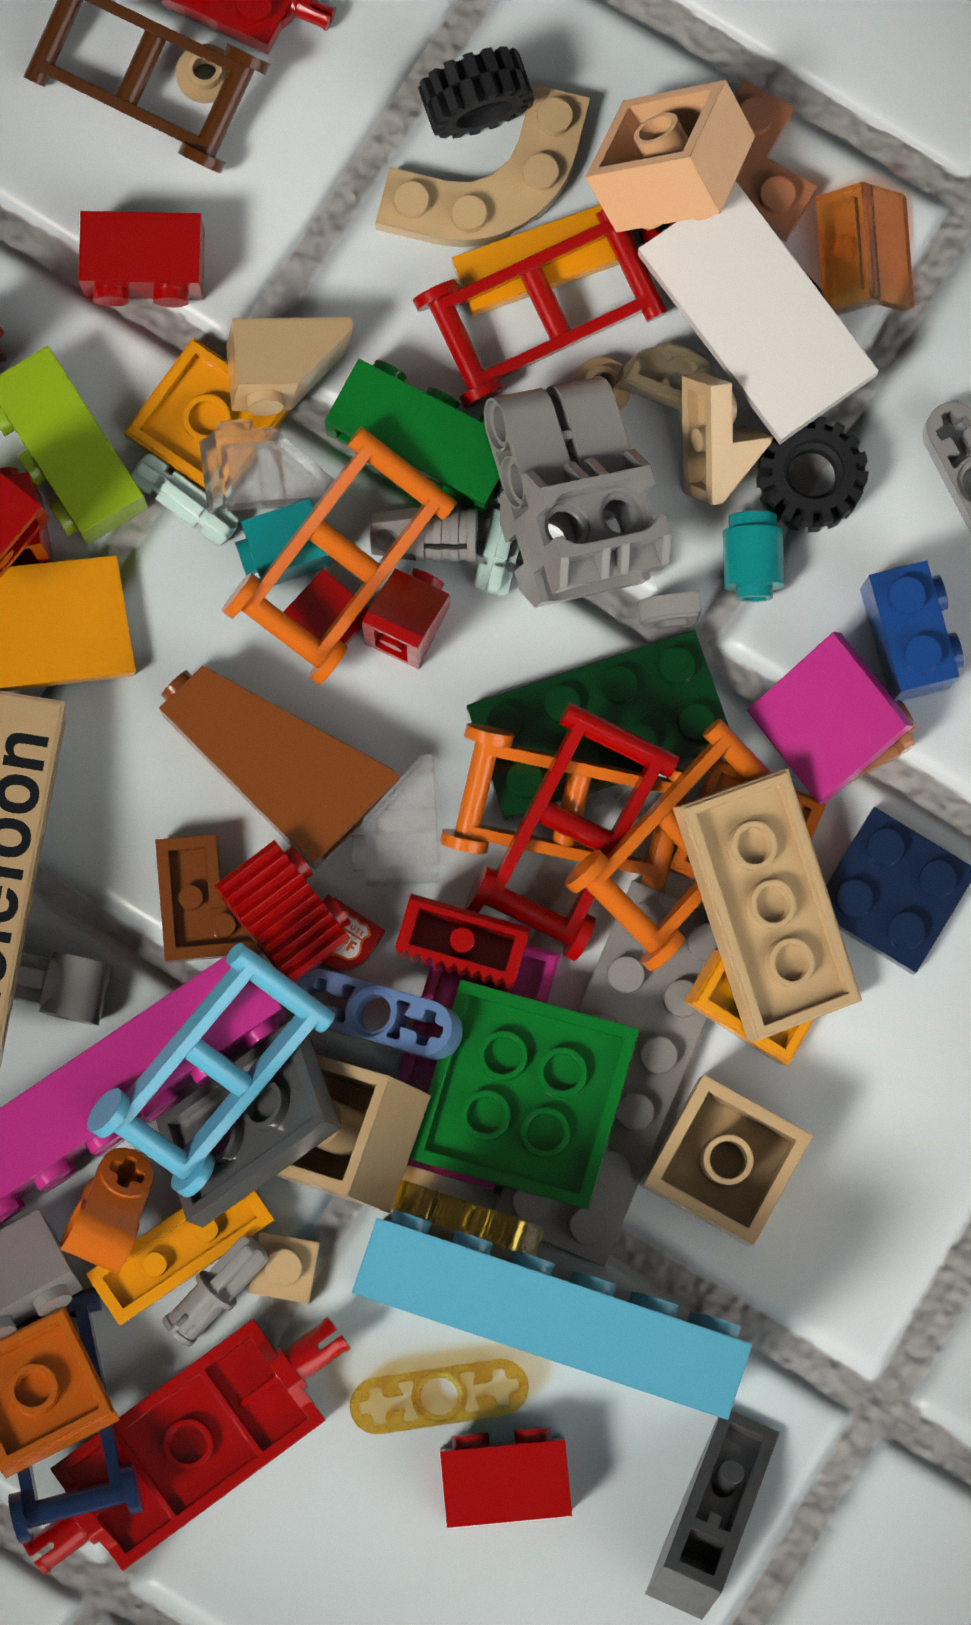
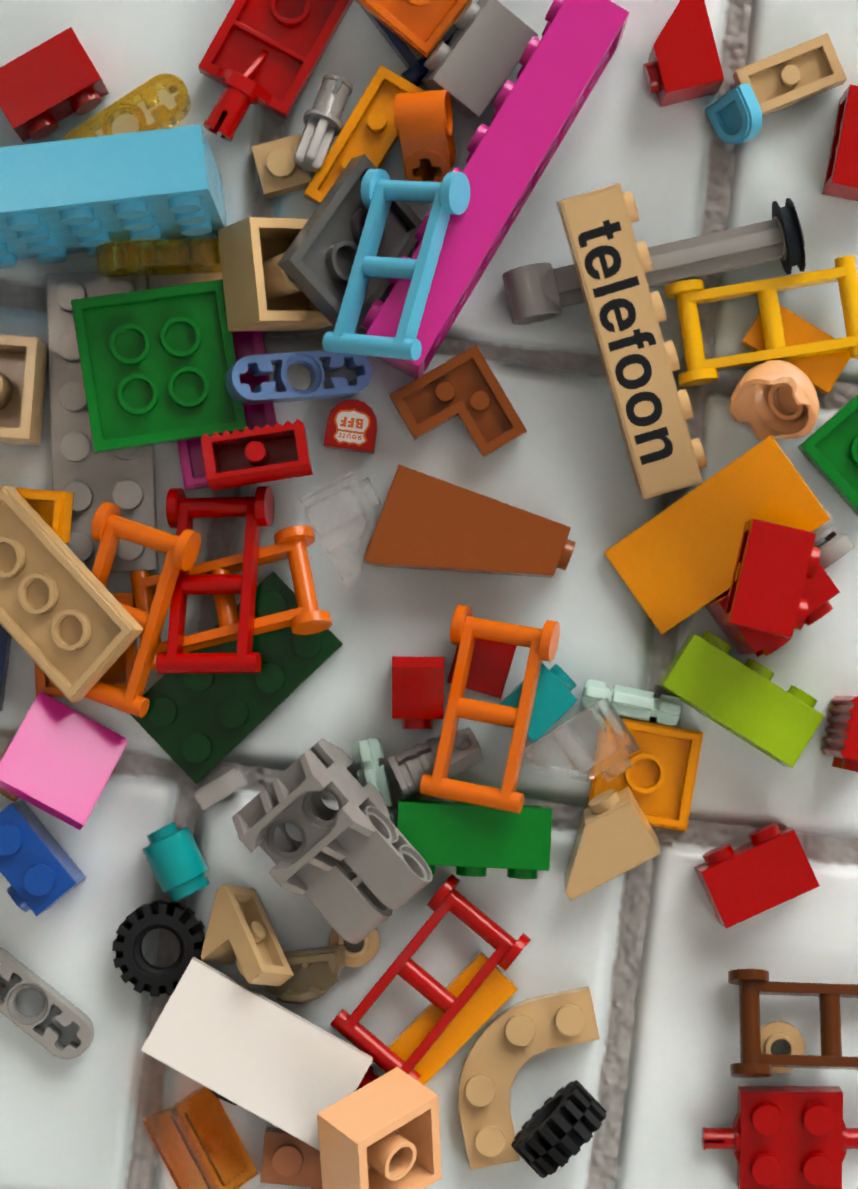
camera: 155 degrees right, 5 degrees up
(283, 911) = (401, 415): red brick -> none

